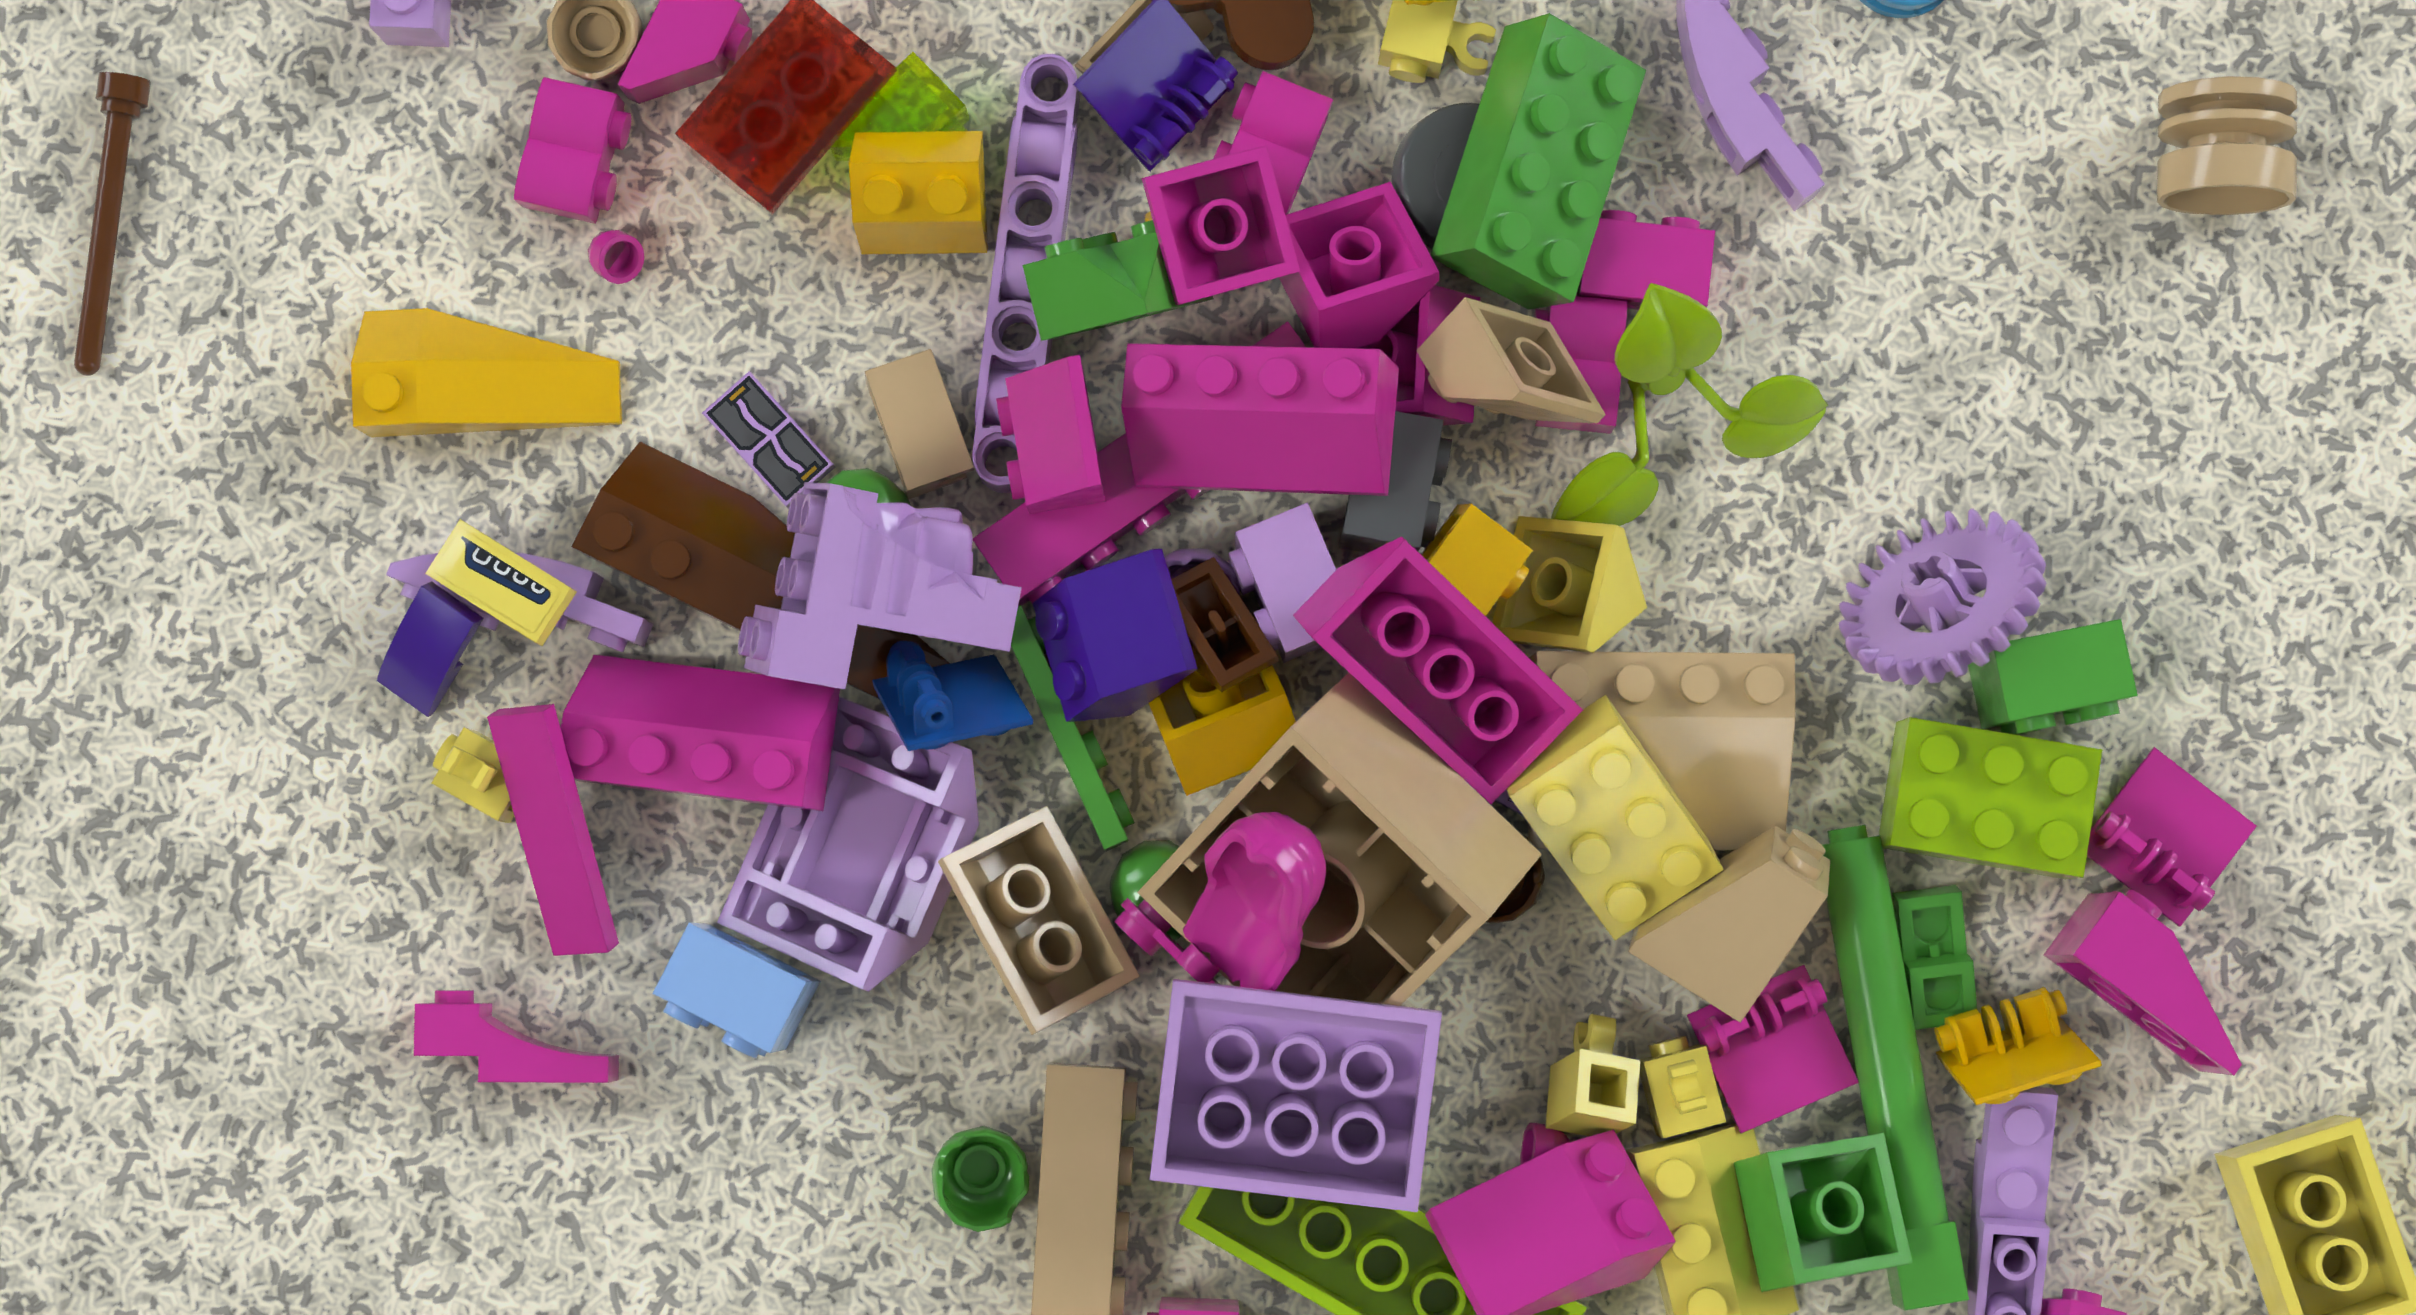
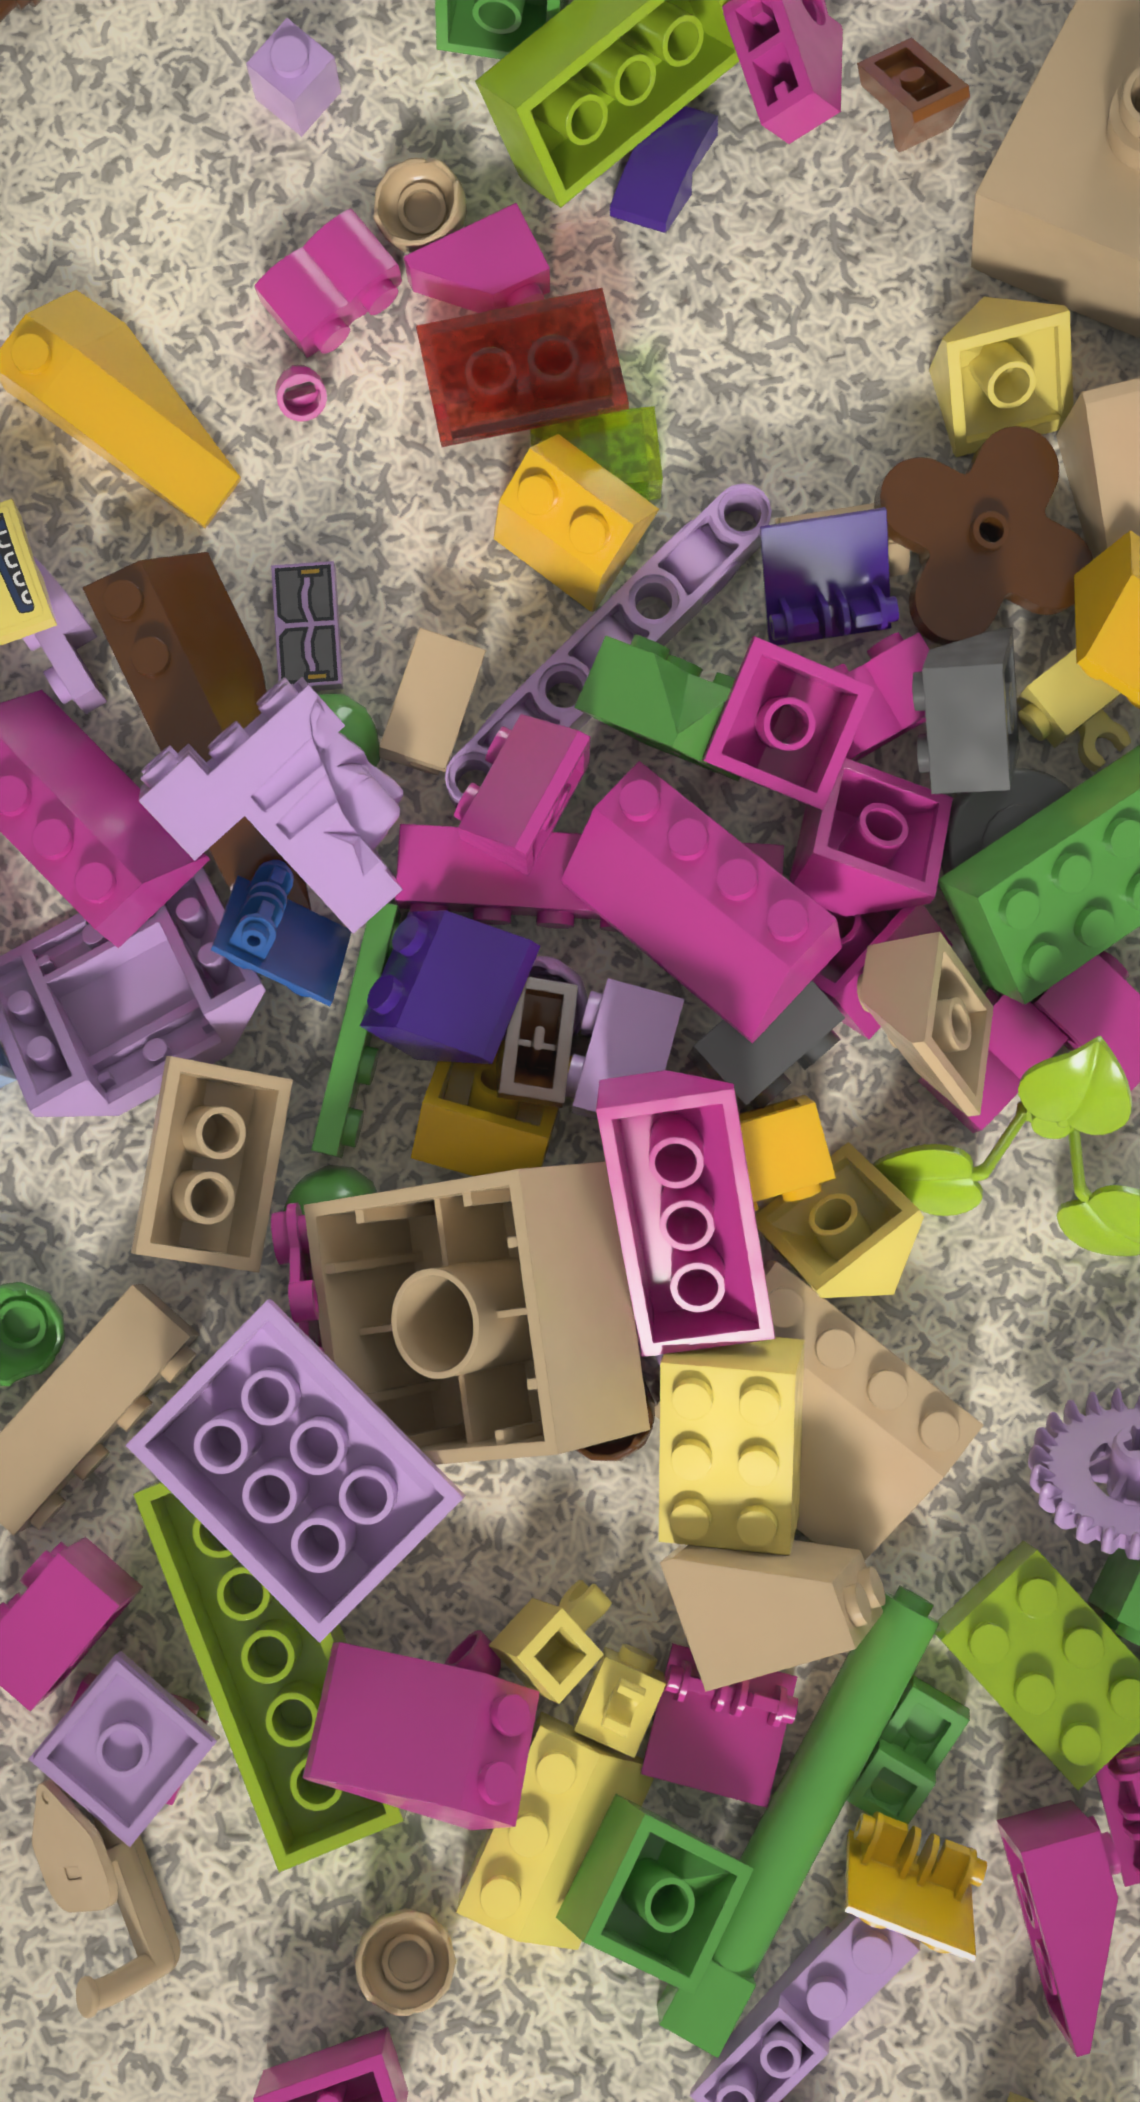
camera: 35 degrees right, 0 degrees up
(1257, 897) = (388, 1287): dark pink hair -> none
(1354, 106) = (969, 714): none -> dark grey slope

